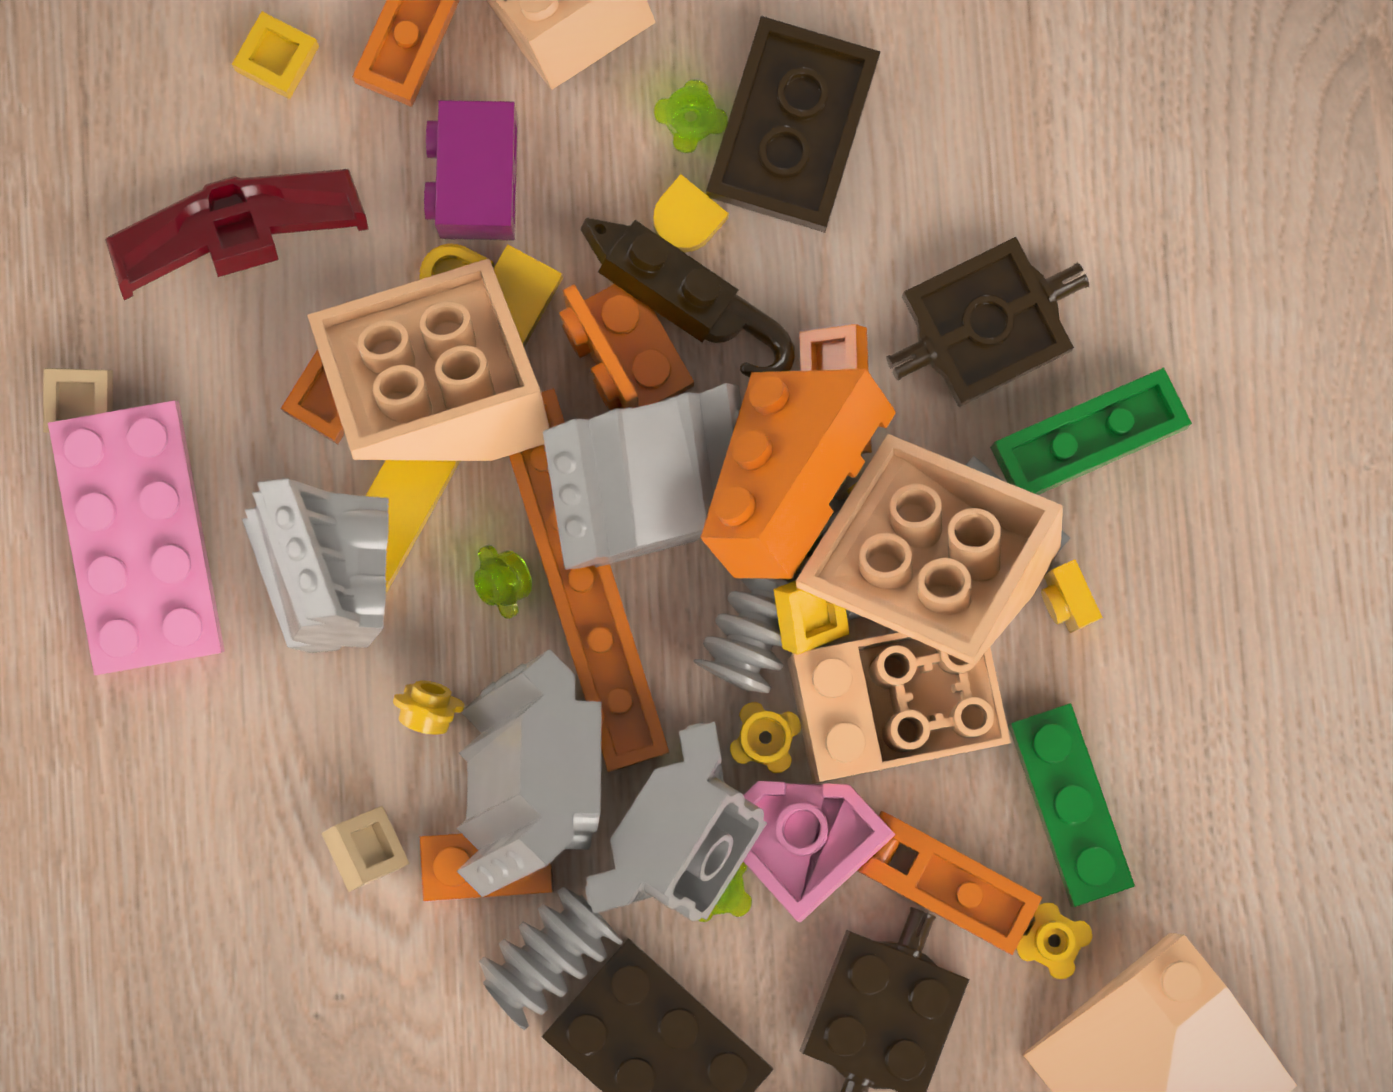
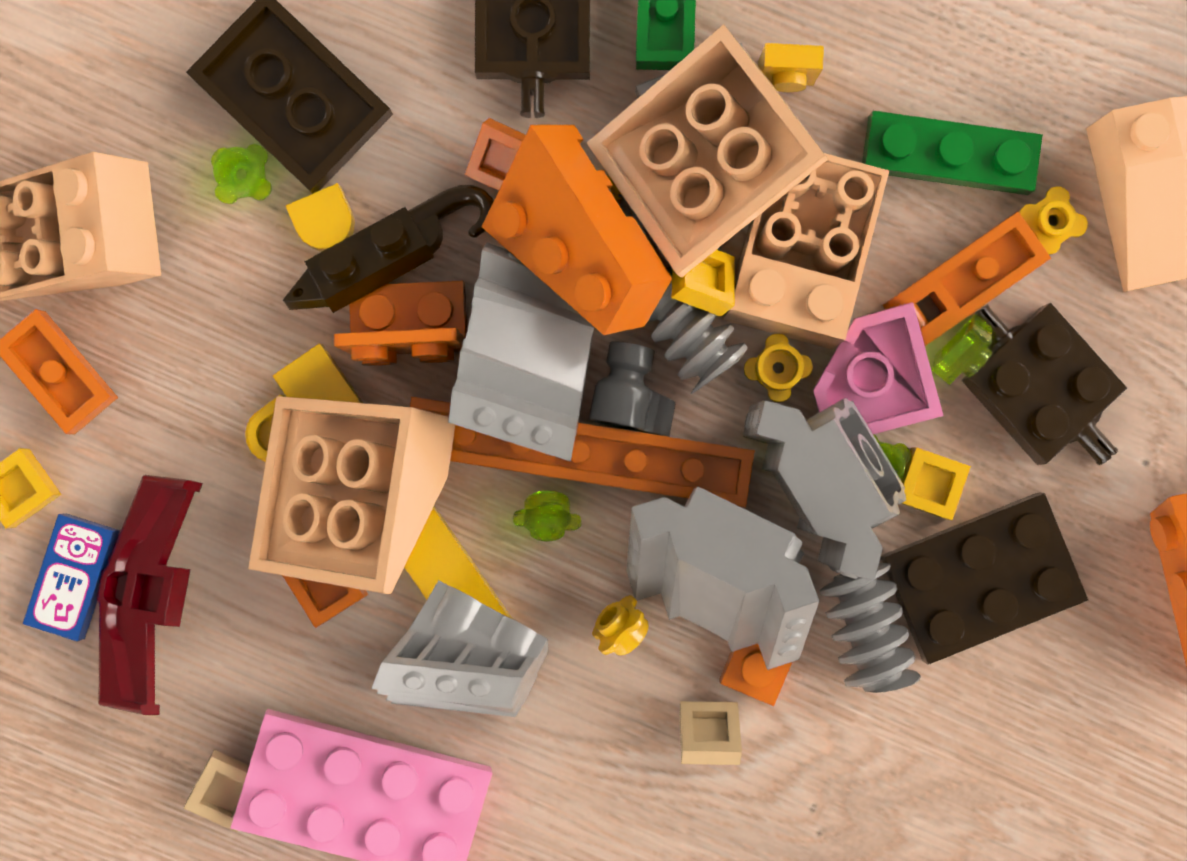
camera: 60 degrees left, 5 degrees up
(214, 149) = (70, 577): none -> tile
(473, 170) = (196, 372): magenta brick -> none
(655, 601) = (623, 397): none -> dark grey piece
(726, 951) = (933, 483): none -> yellow tile
(873, 914) = (964, 351): none -> clear neon green plate

